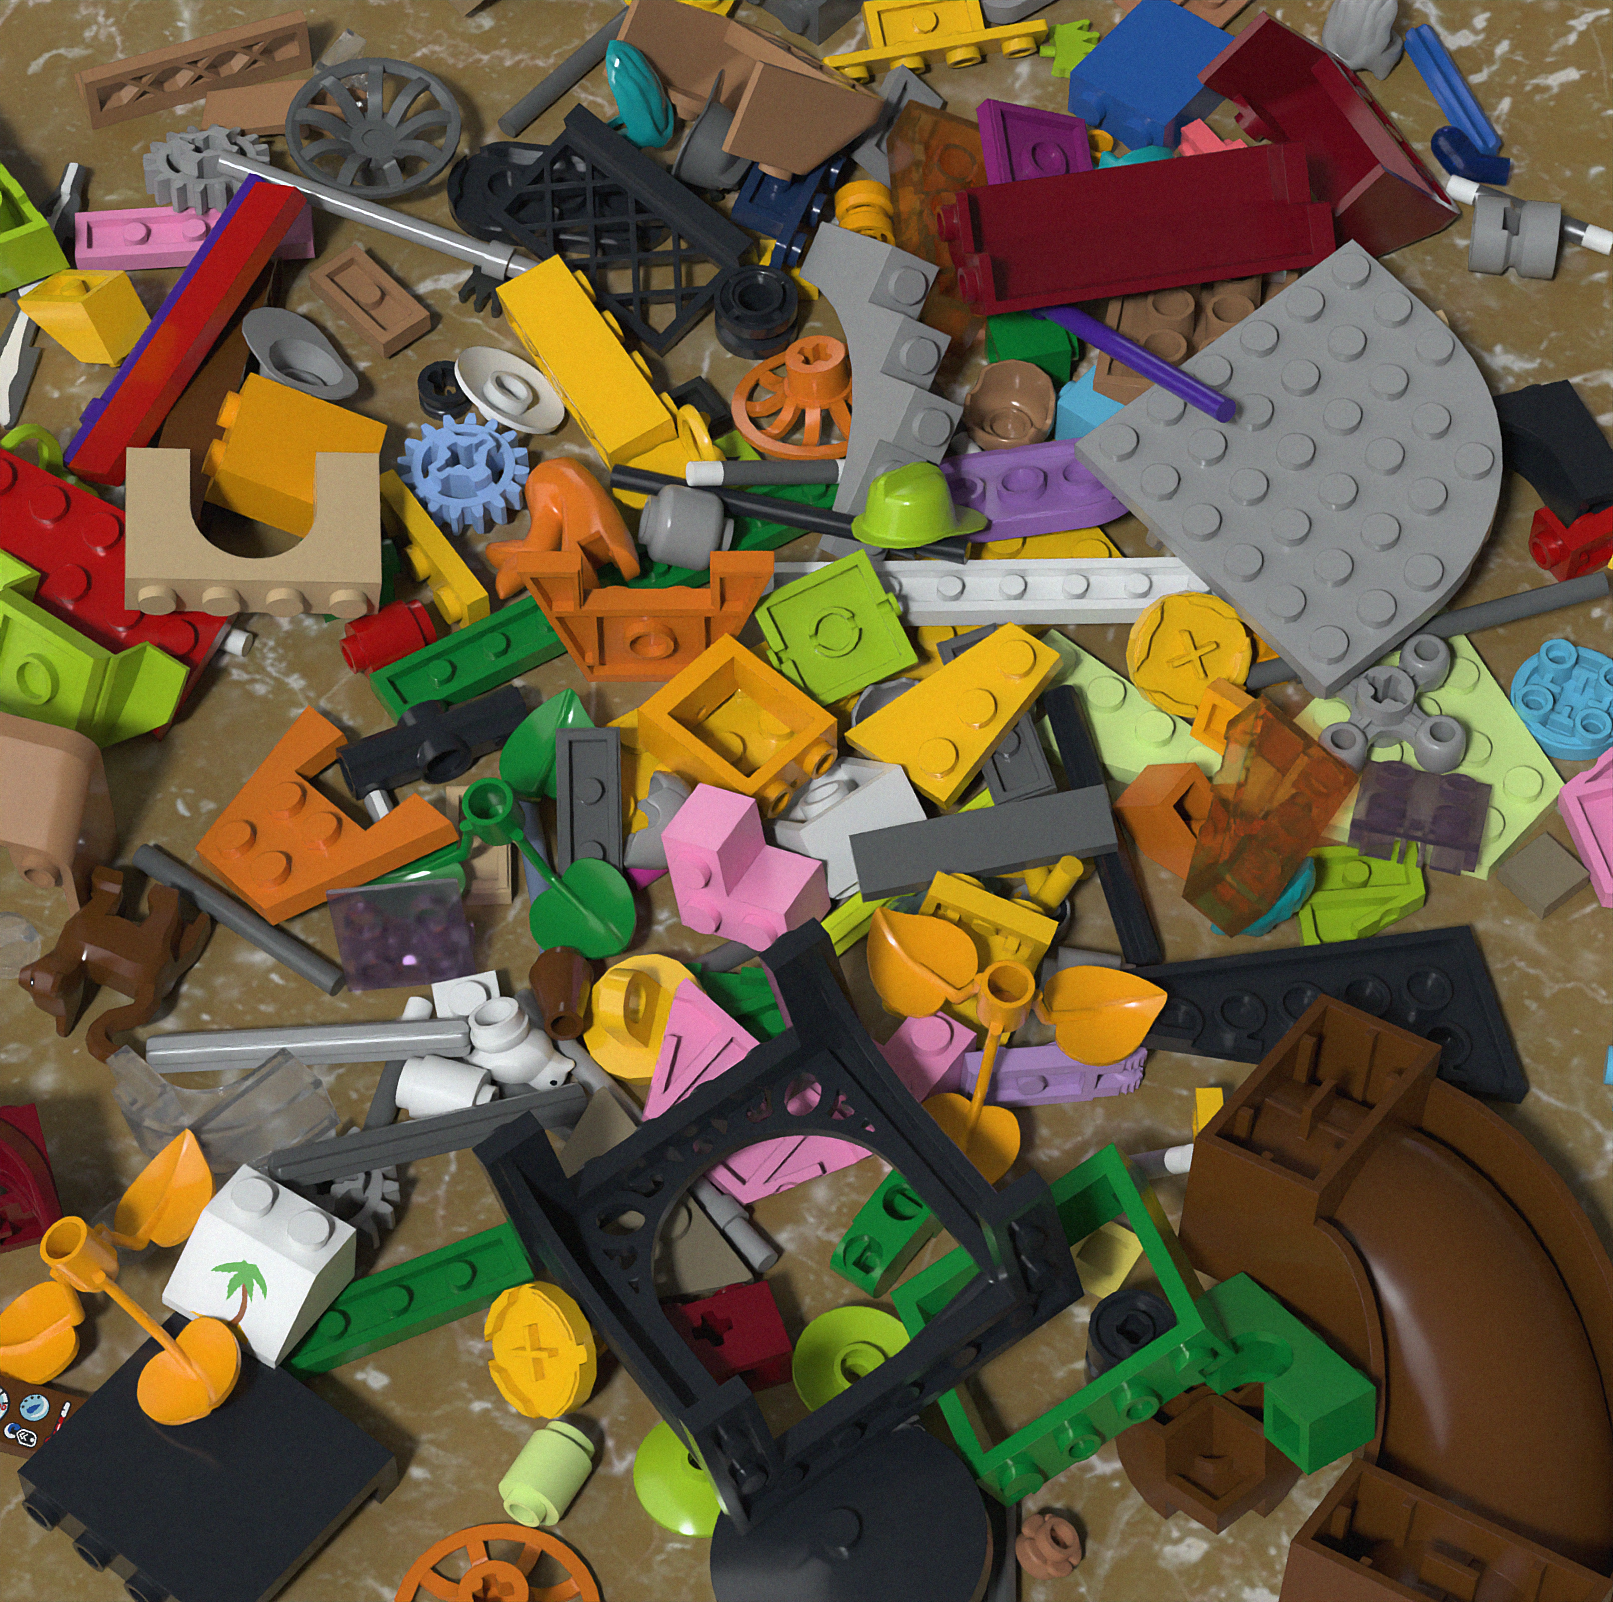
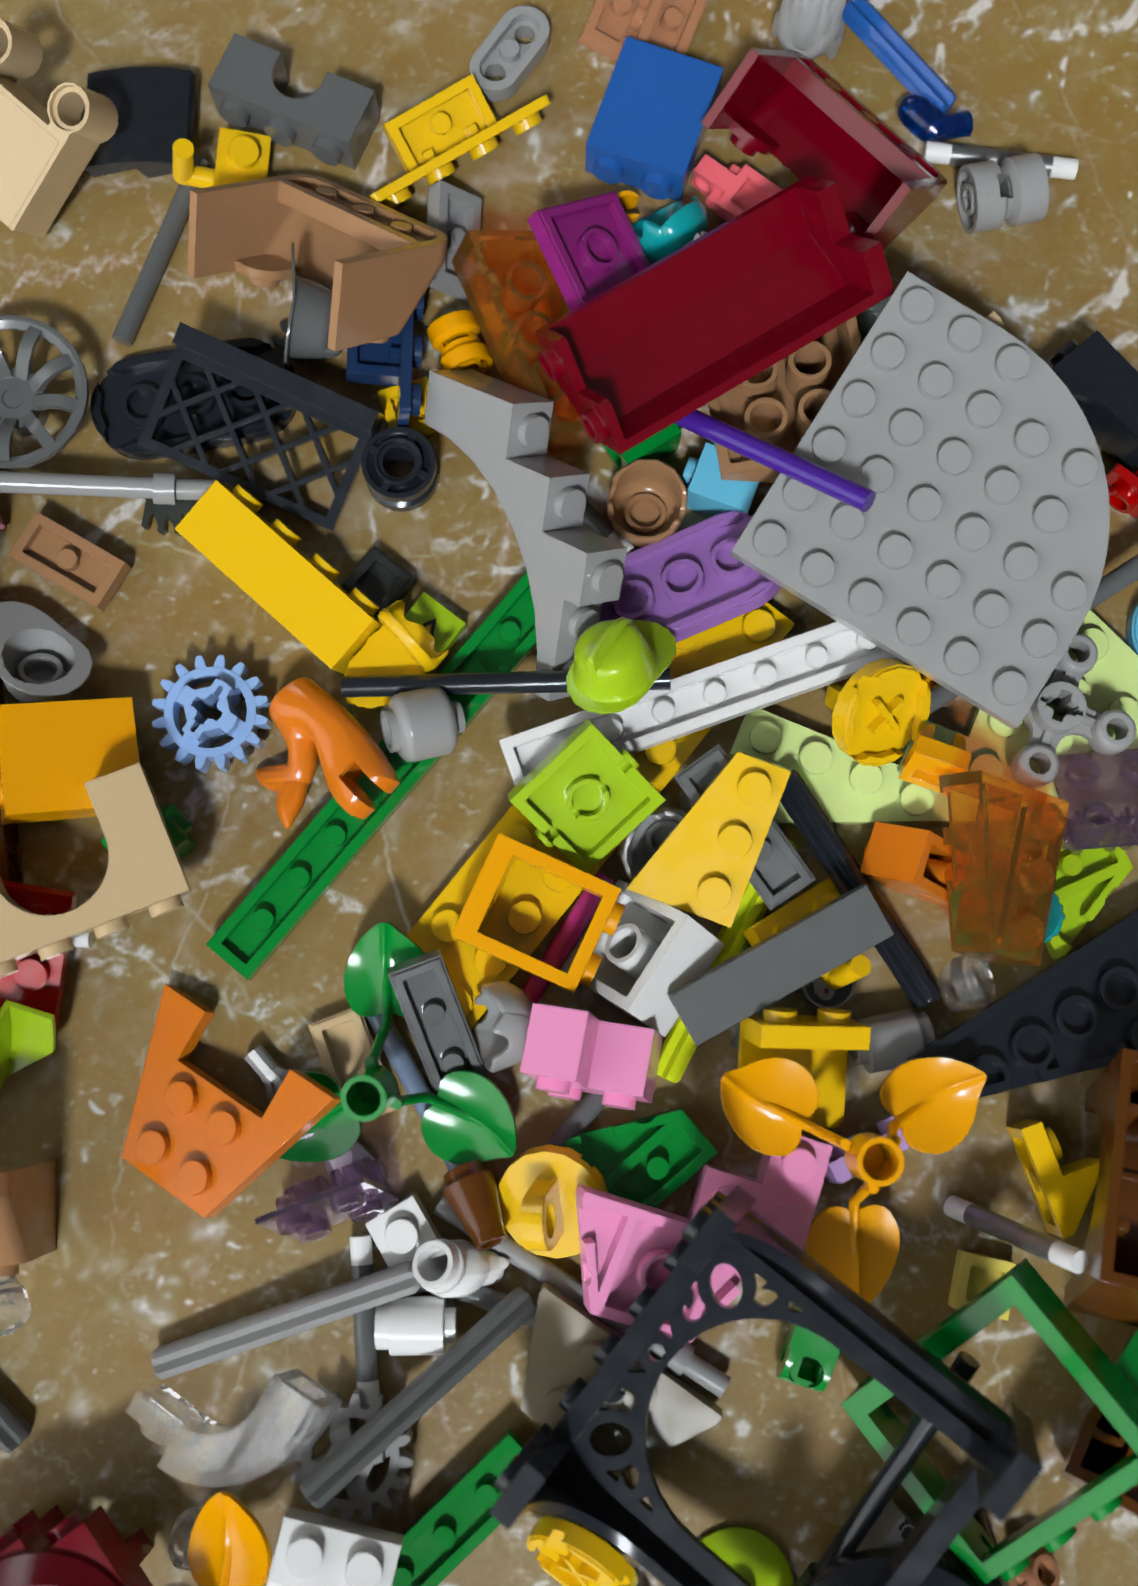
camera: 20 degrees left, 25 degrees up
(117, 953) = (100, 1288): reddish brown animal -> none
(239, 920) = (163, 1201): dark grey bar -> none
(386, 636) = (214, 898): red brick -> none
(430, 555) = (210, 806): yellow plate -> none
(431, 742) = (281, 989): black piece -> none
(435, 406) = (176, 642): black bush -> none
(508, 390) = (219, 620): white dish -> none
(639, 97) = (228, 292): teal piece -> none
(643, 632) = (405, 844): orange wing -> none
(744, 1330) = (744, 1478): dark red brick -> none
(764, 472) = (471, 648): dark grey bar -> none
(814, 381) = (478, 534): orange wheel -> none
(840, 1344) = (820, 1499): lime dish -> none
(1069, 46) = (570, 110): lime piece -> none
(1122, 1327) = (1030, 1379): black wheel -> none
(1196, 941) = (971, 981): none -> clear tile

